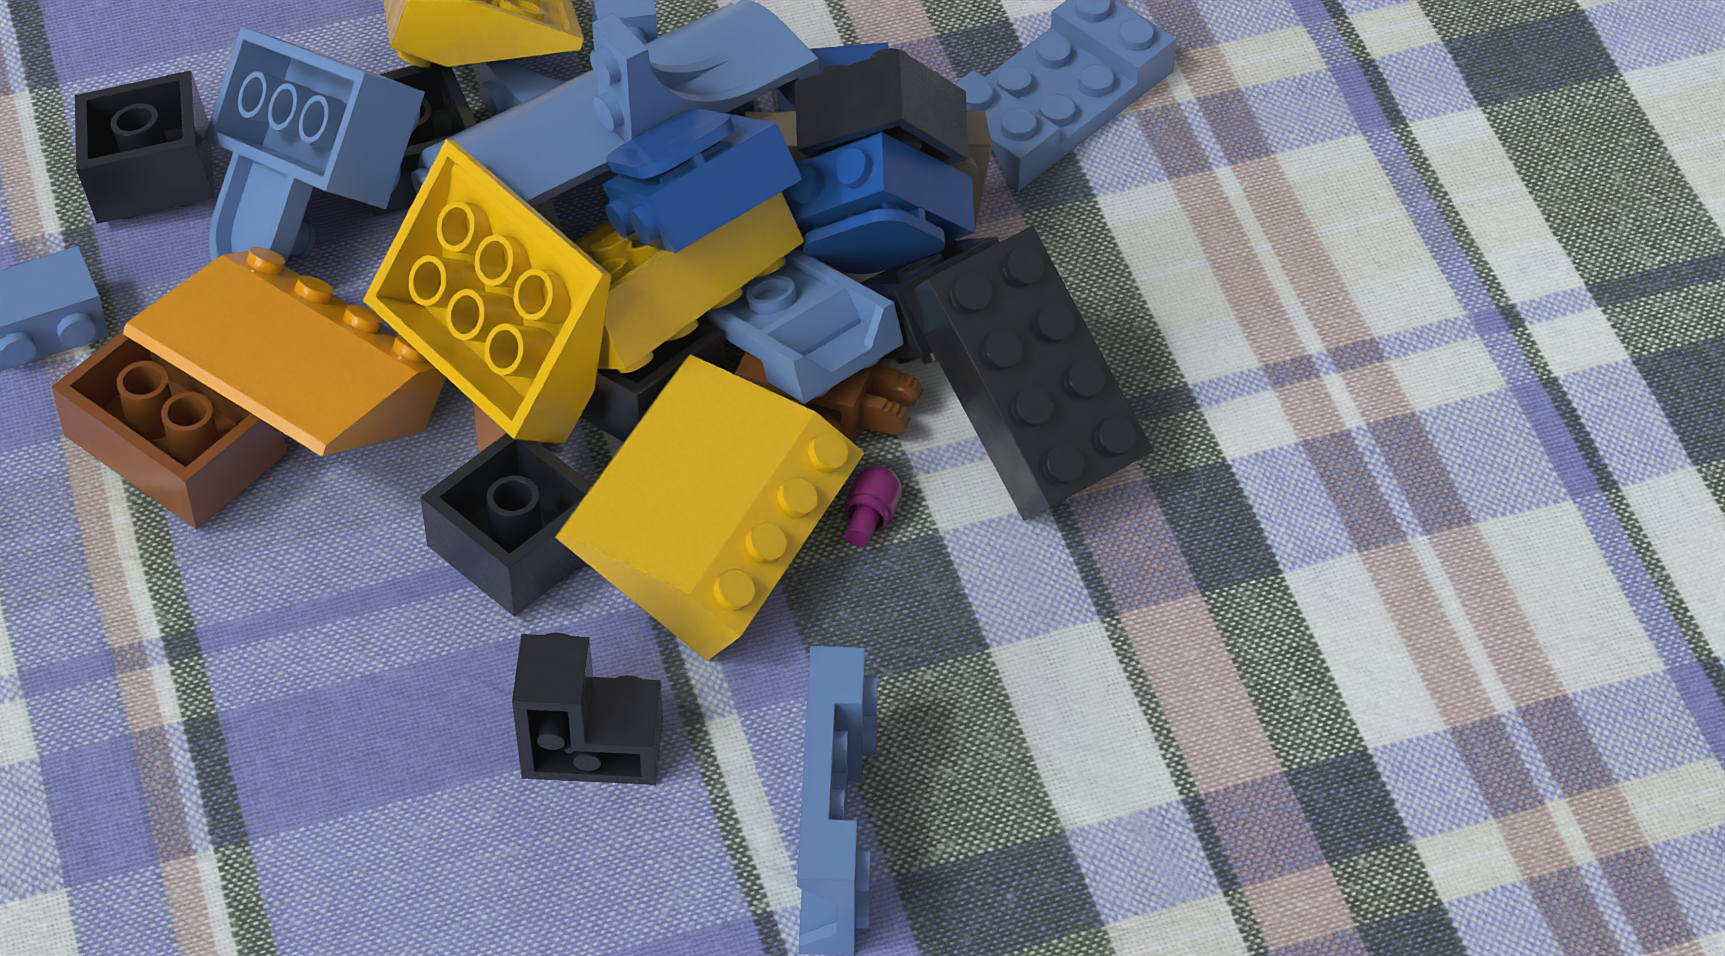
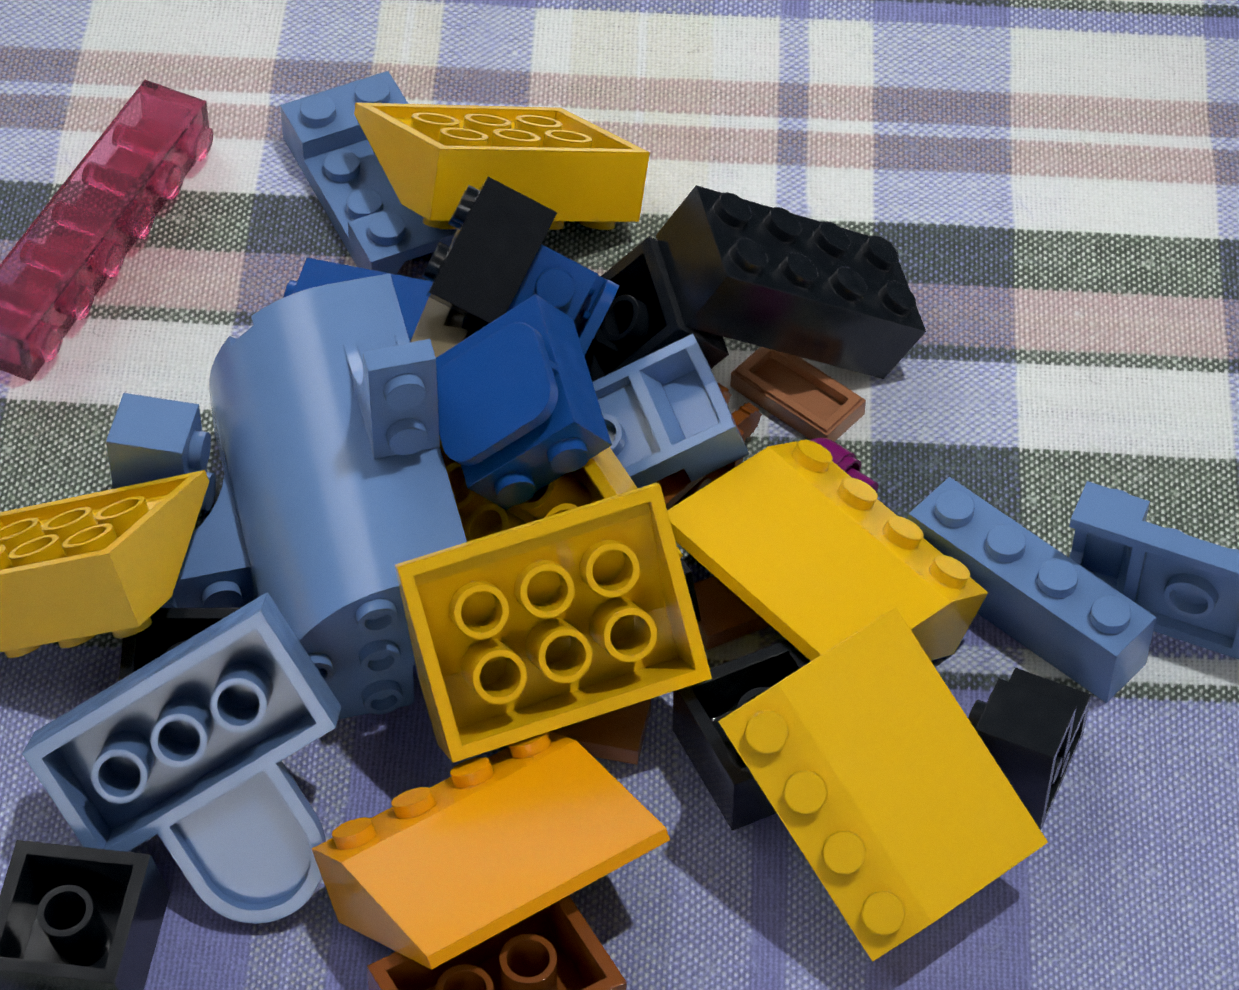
camera: 70 degrees left, 0 degrees up
(436, 584) = (883, 783): none -> yellow slope
(767, 699) = (1039, 592): none -> medium blue brick
(954, 466) = (798, 394): none -> nougat tile
(1091, 139) = (537, 151): none -> yellow slope

